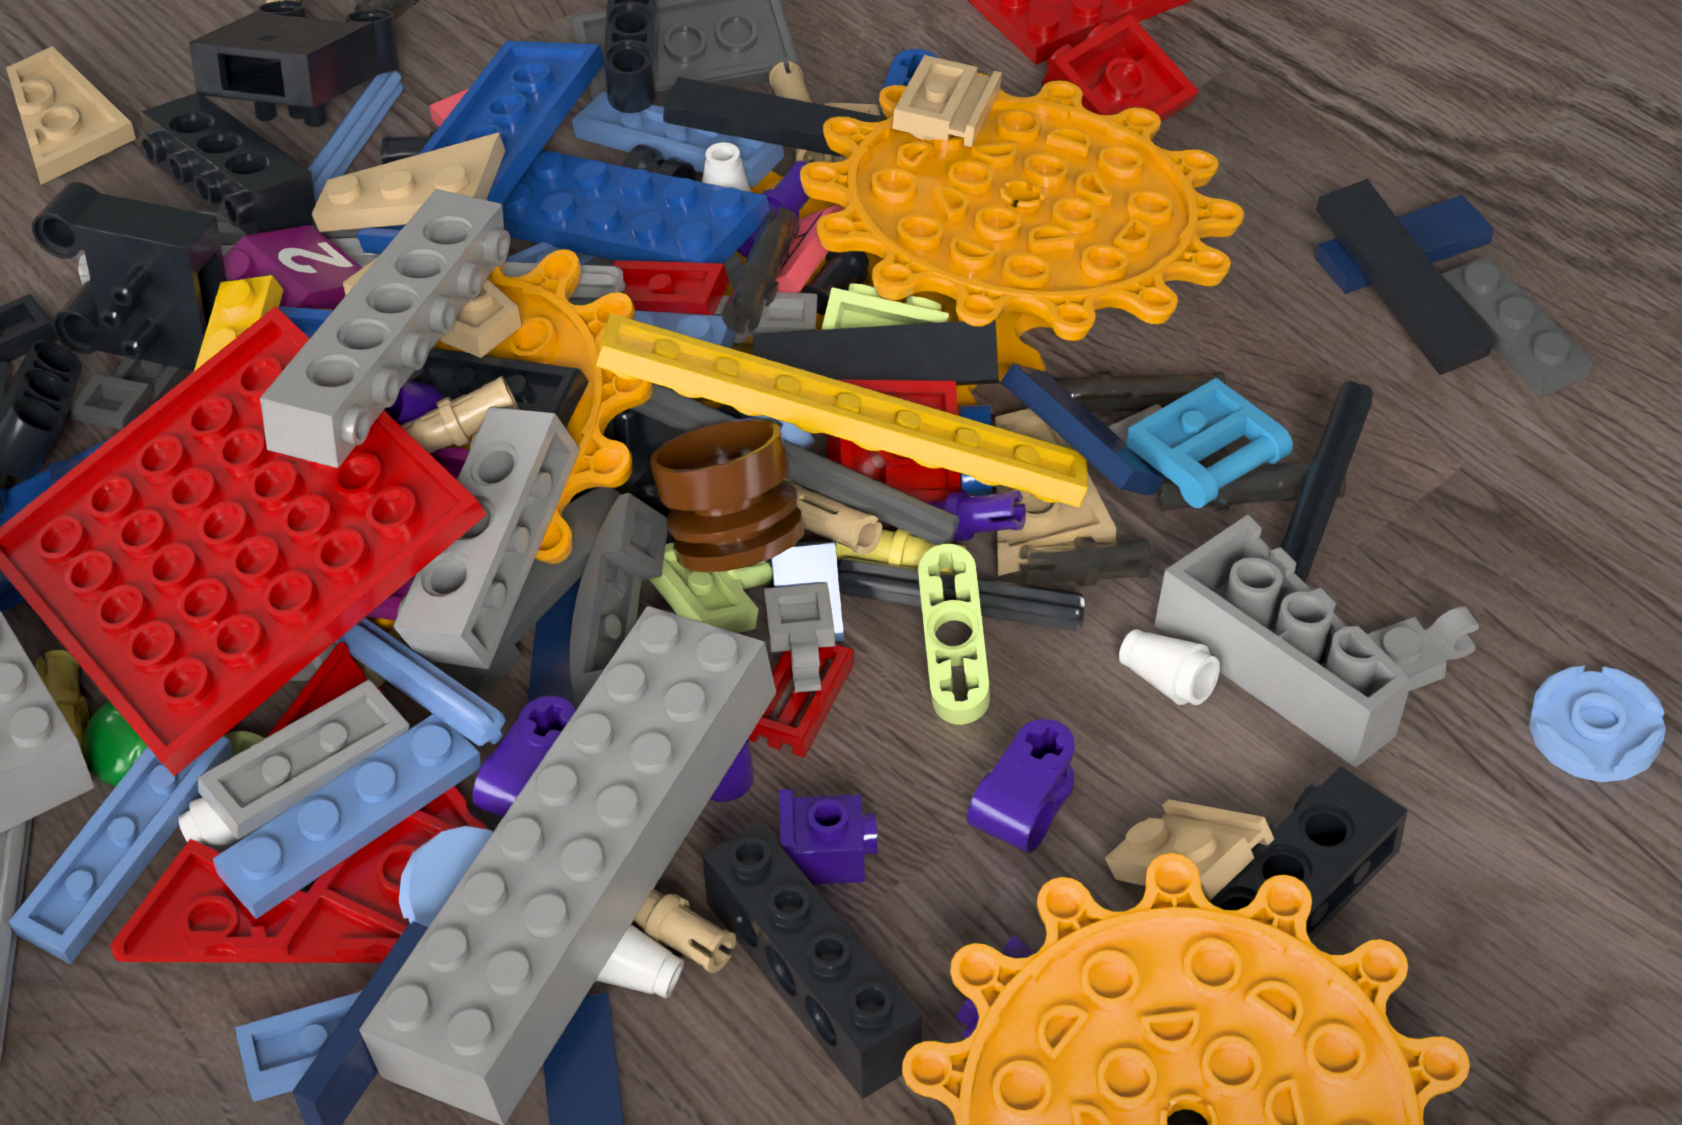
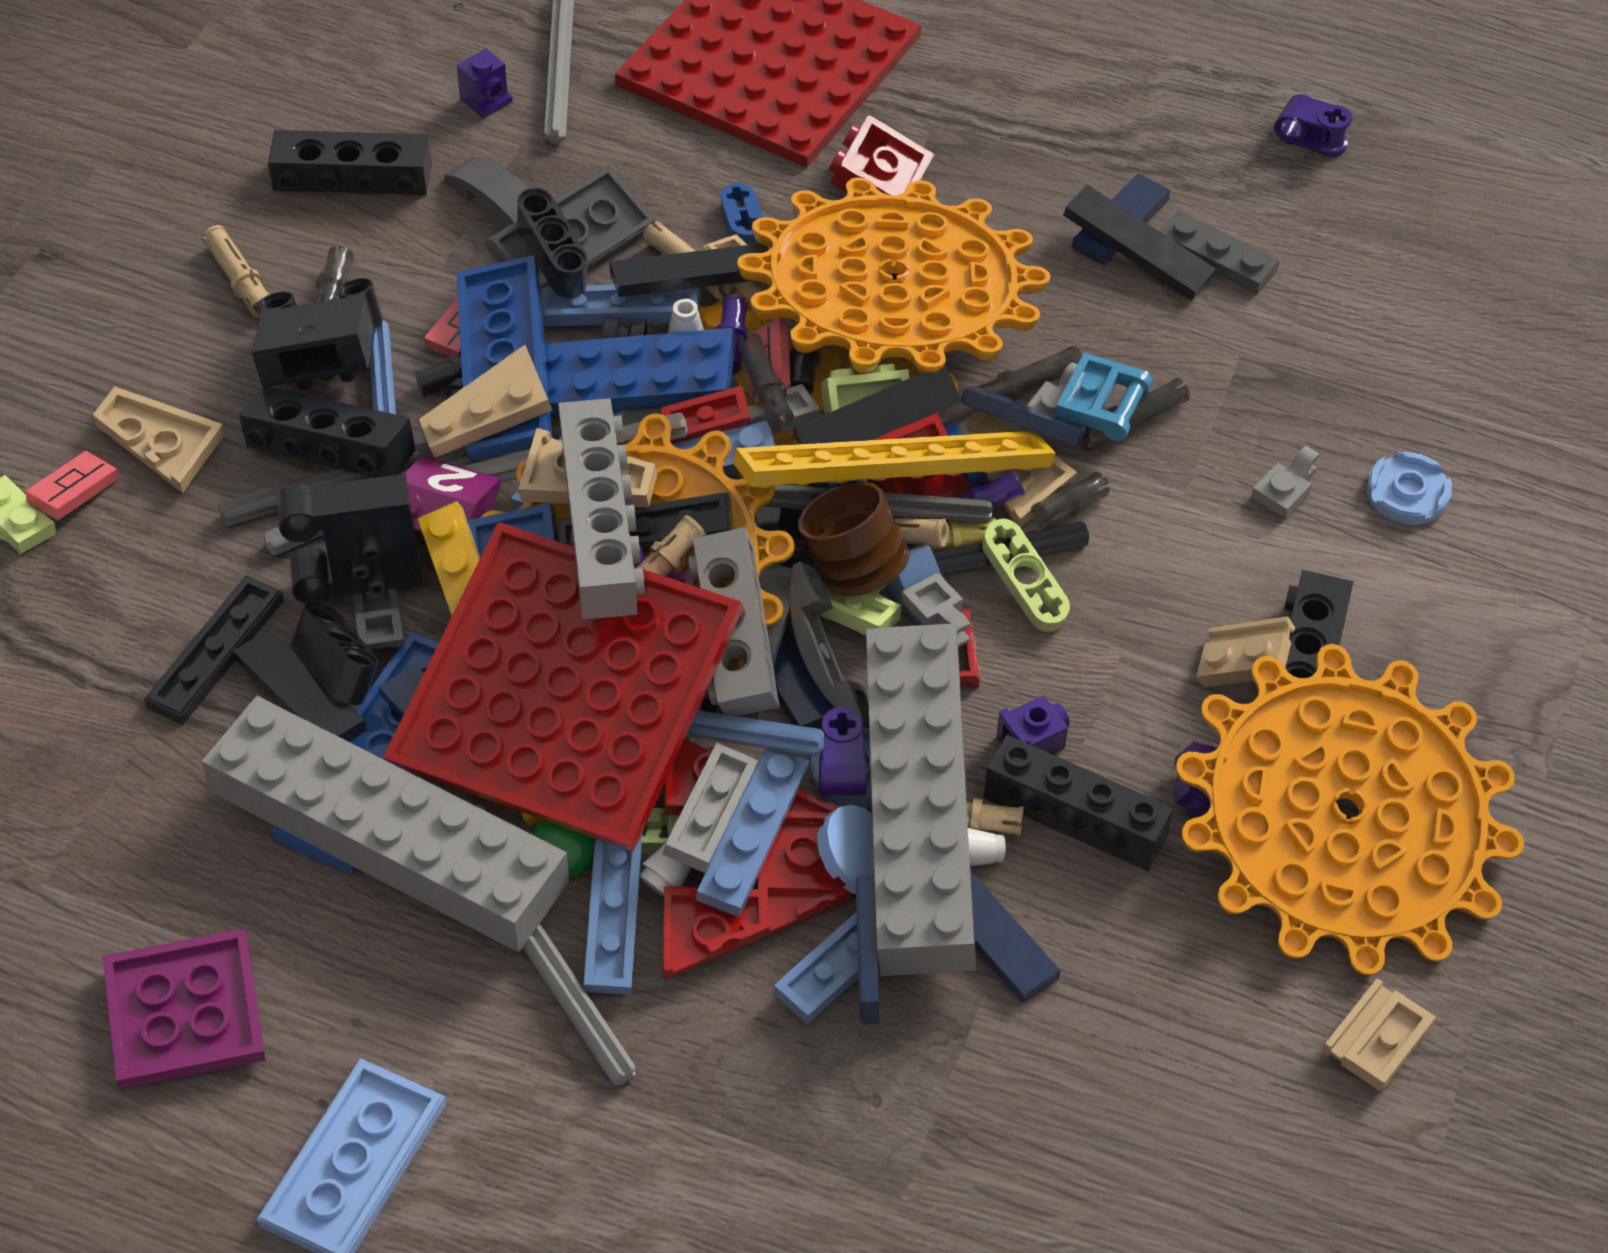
camera: 30 degrees left, 5 degrees up
(946, 101) = (808, 220): tan plate -> none
(1026, 786) = (1129, 651): dark purple piece -> none
(1173, 666) = (1160, 546): white cone -> none
(1284, 642) = (1220, 507): light grey wedge -> none
(1326, 475) = (1182, 403): black axle -> none

